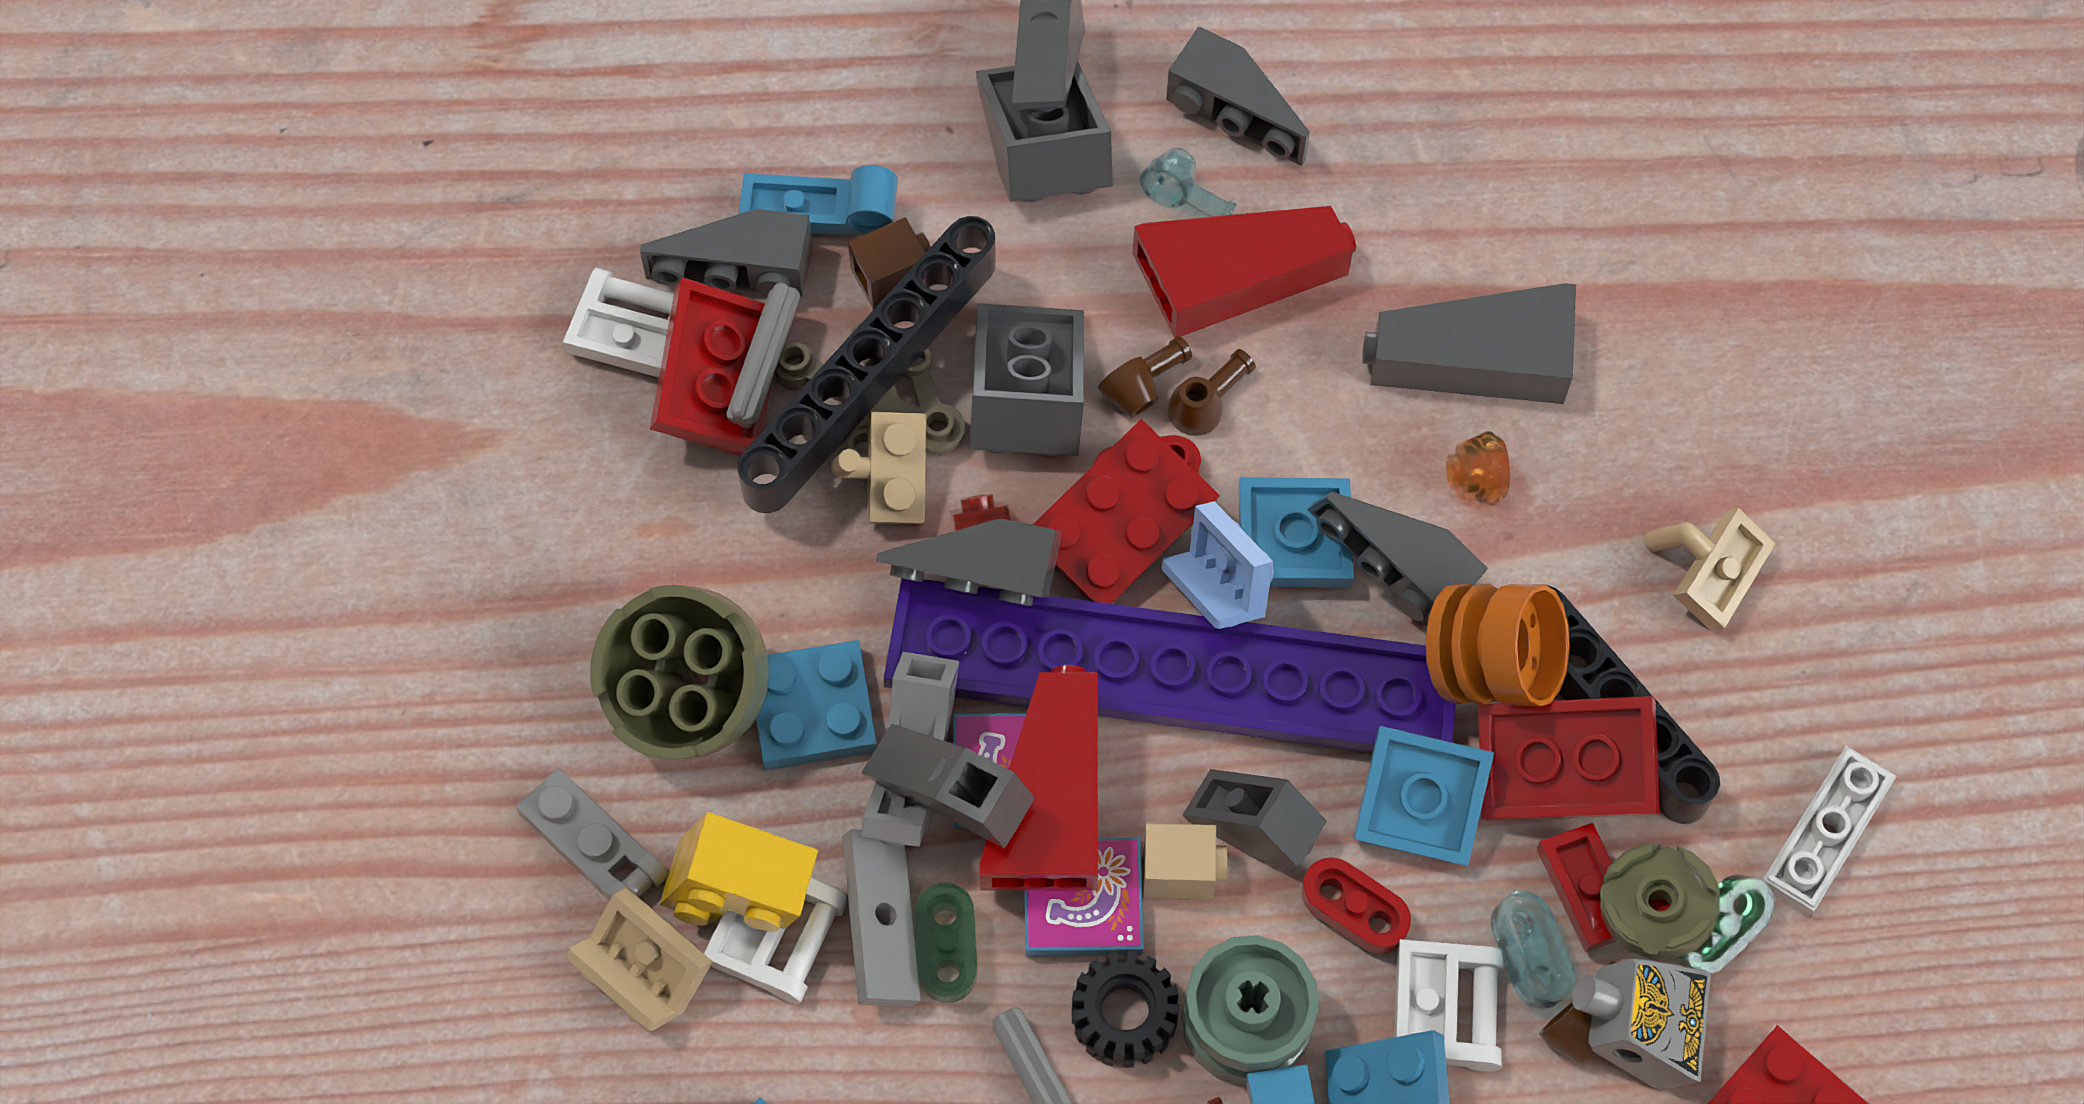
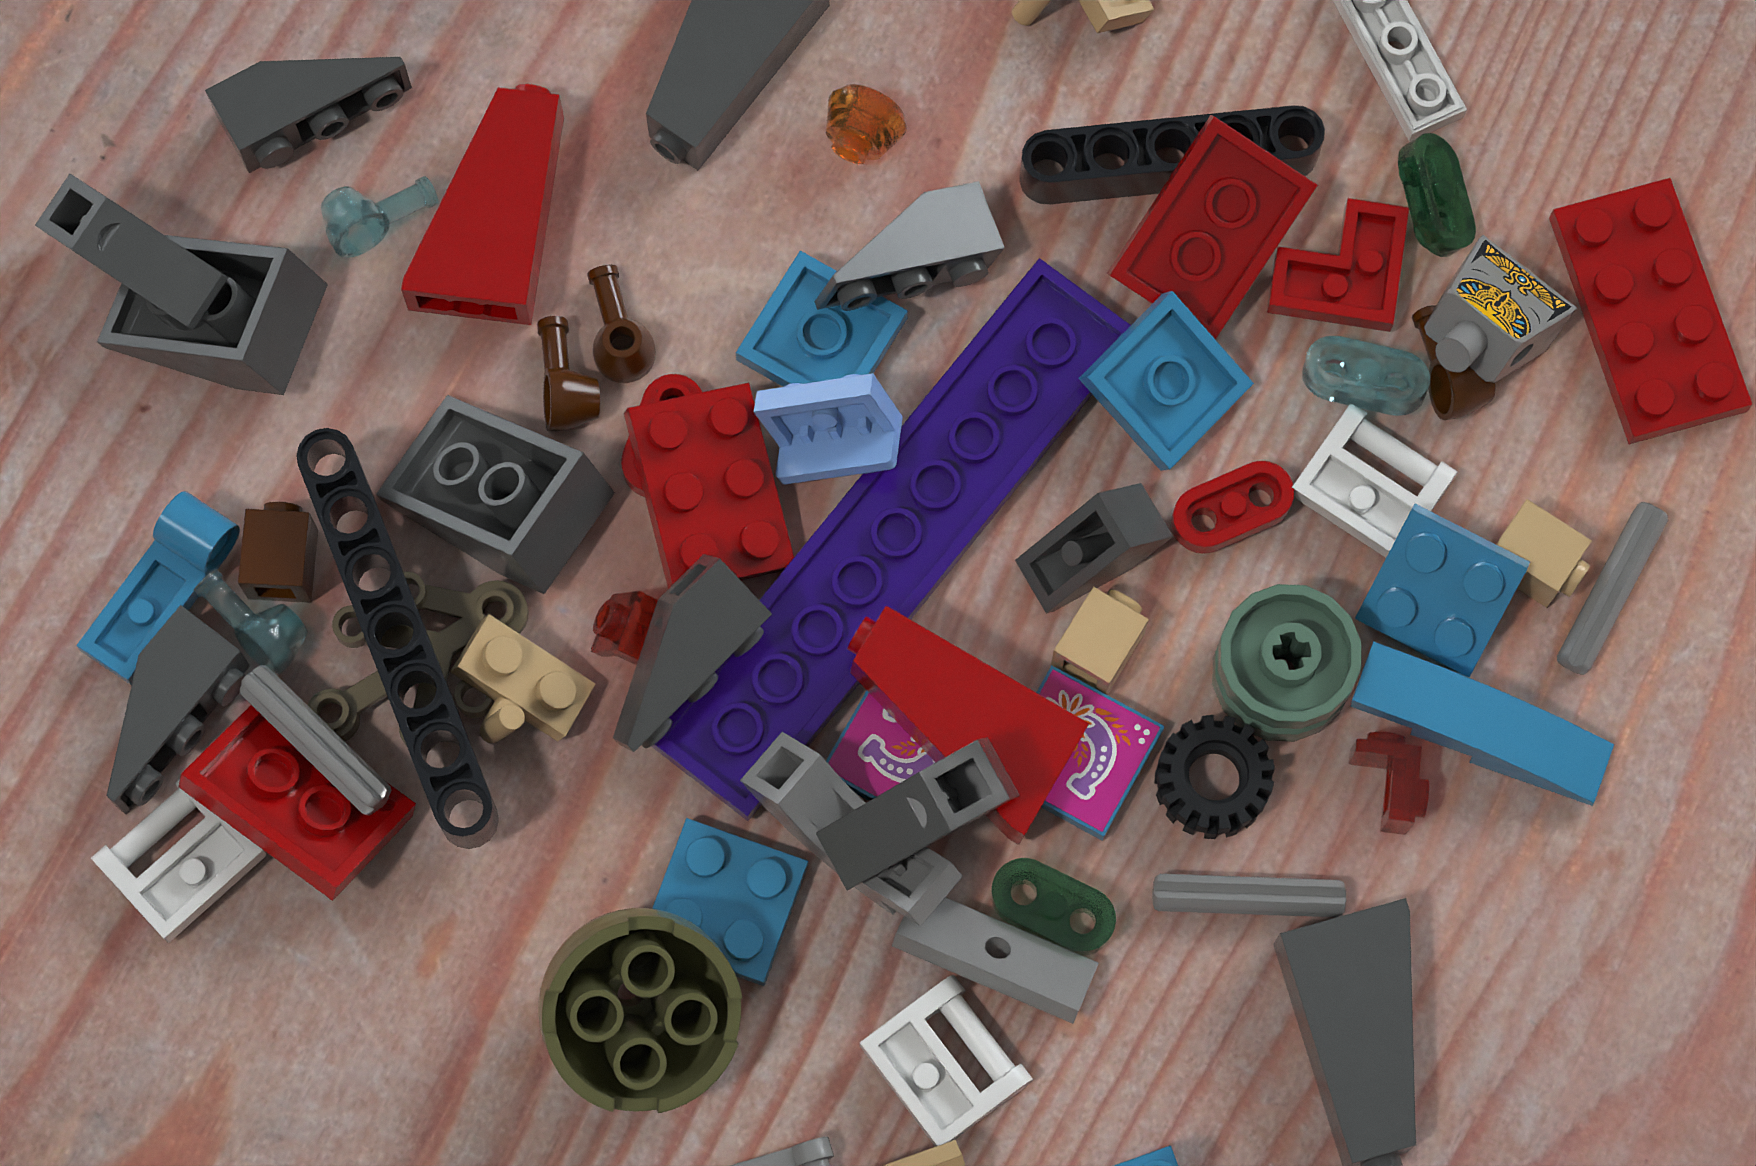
camera: 60 degrees left, 10 degrees up
(737, 870) = (875, 1076): yellow brick -> none
(829, 290) = (268, 636): none -> clear light blue bar
(1497, 644) = (1074, 220): orange wheel -> none
(1664, 874) = (1388, 204): olive plate -> none

